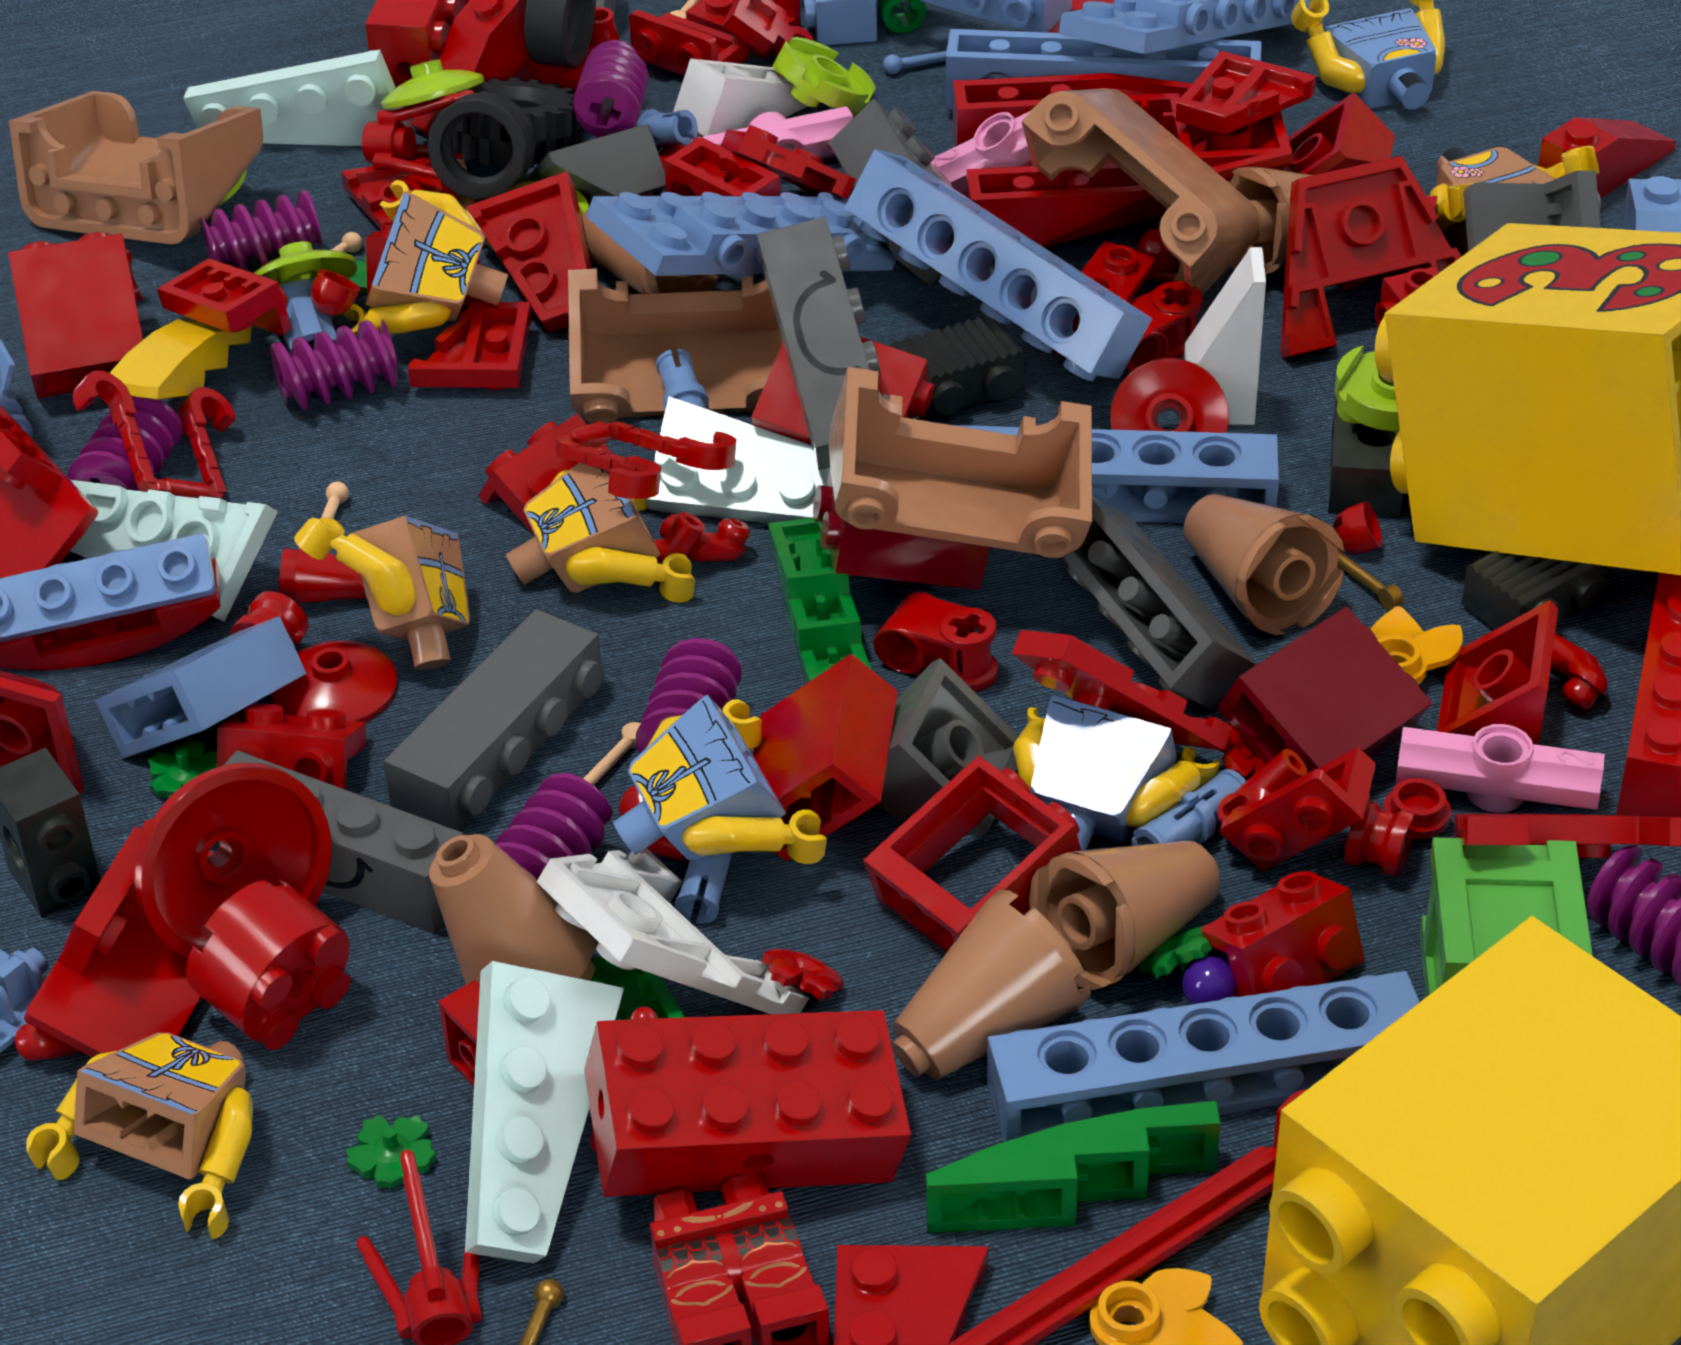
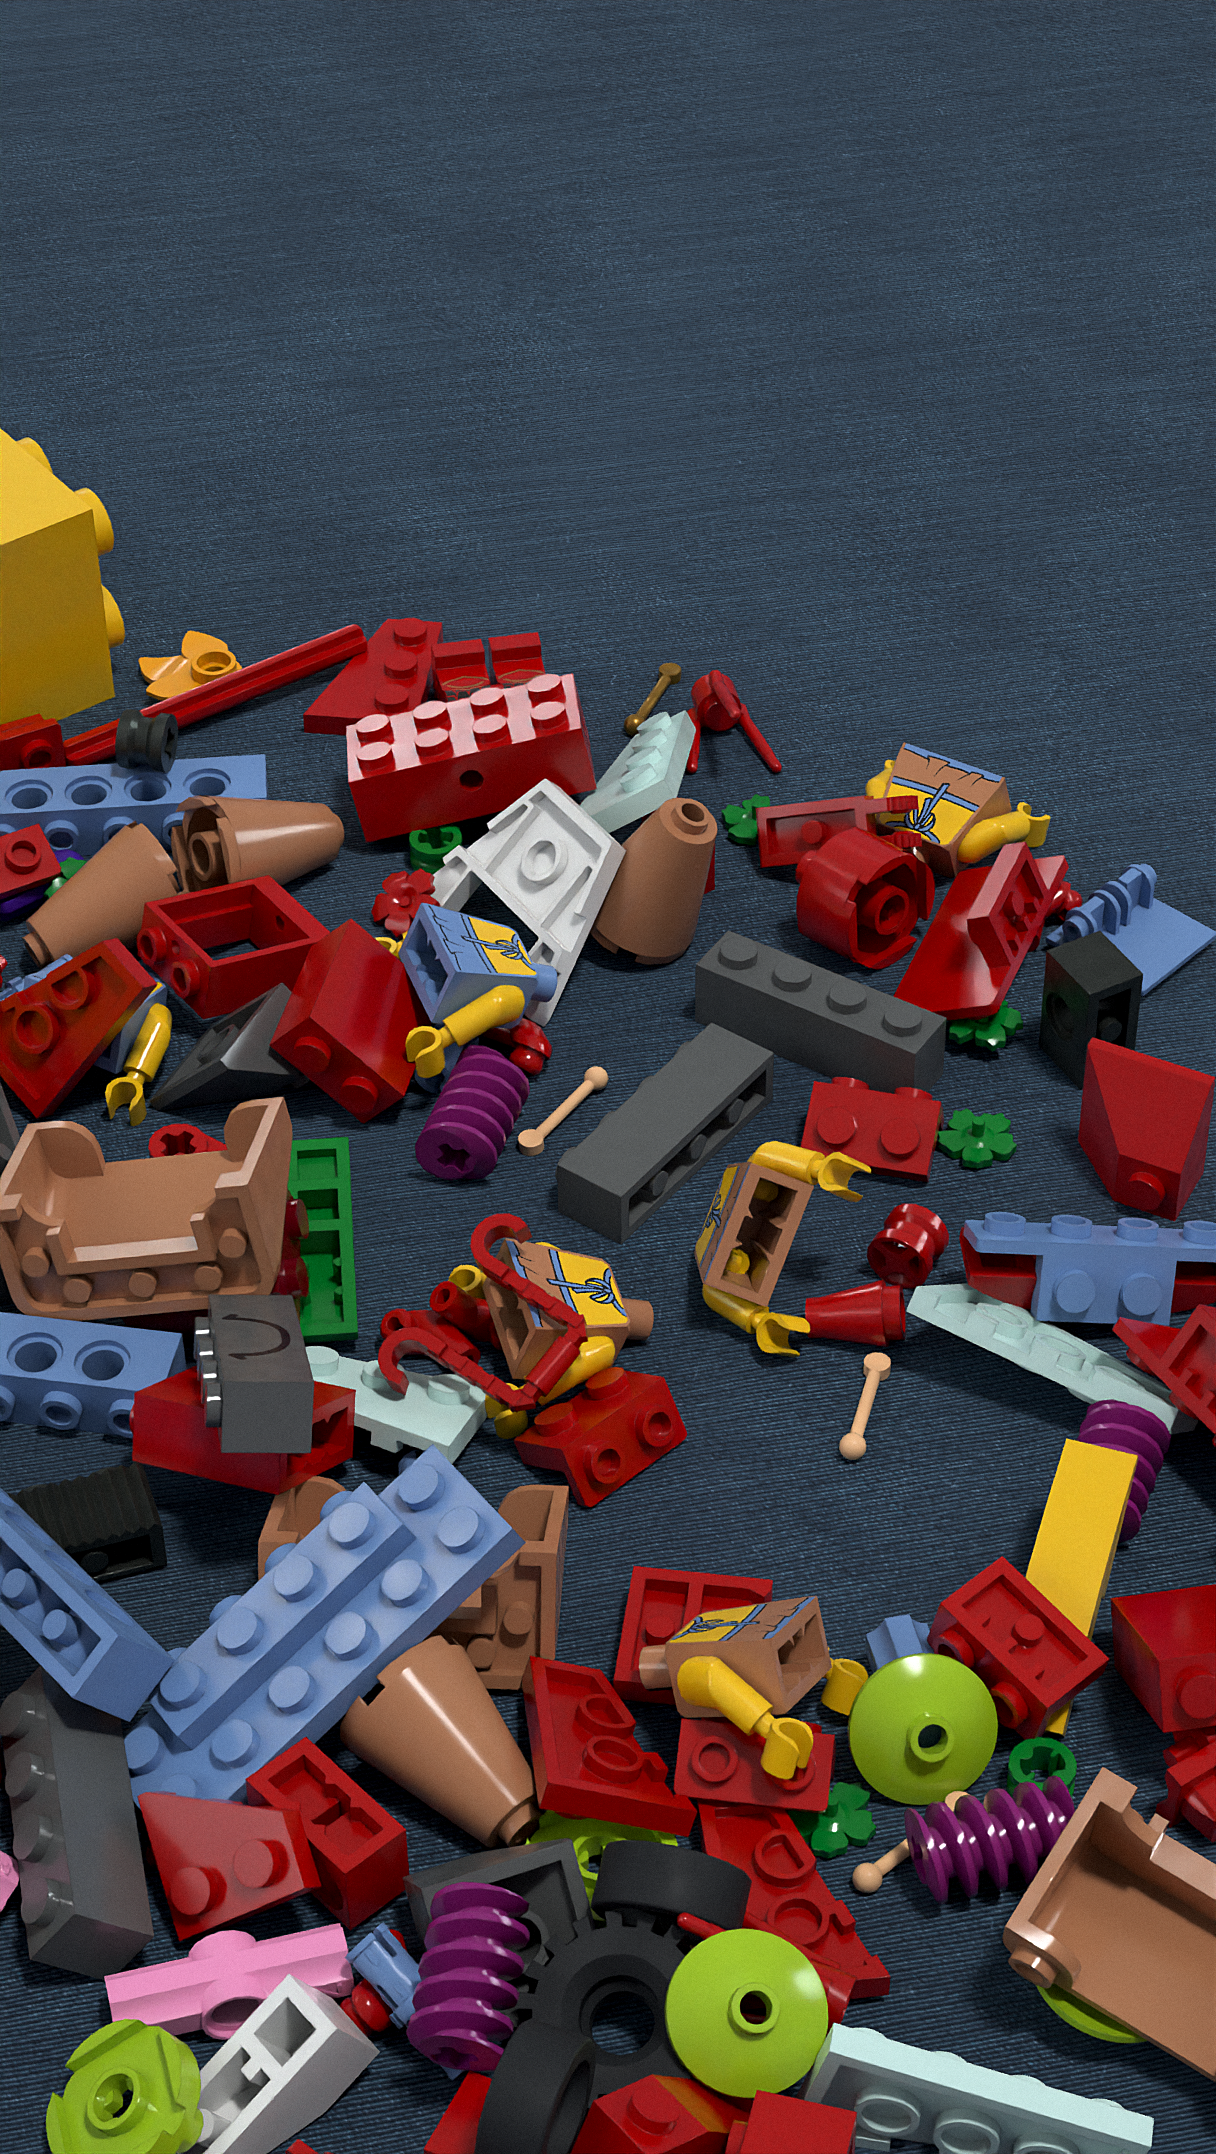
camera: 175 degrees left, 0 degrees up
(191, 412) = (1130, 1438): red piece -> none
(201, 688) = (965, 1147): medium blue slope -> none
(266, 831) = (901, 920): red dish -> none
(286, 1051) = (797, 828): none -> red hinge
(333, 293) = (867, 1644): red hinge -> none
(335, 363) = (871, 1583): magenta piece -> none
(341, 678) = (838, 1232): red dish -> none
(556, 822) = (623, 996): magenta piece -> none
(1046, 1173) = (288, 736): green slope -> none
(1148, 1050) = (146, 740): none -> pearl dark grey wheel

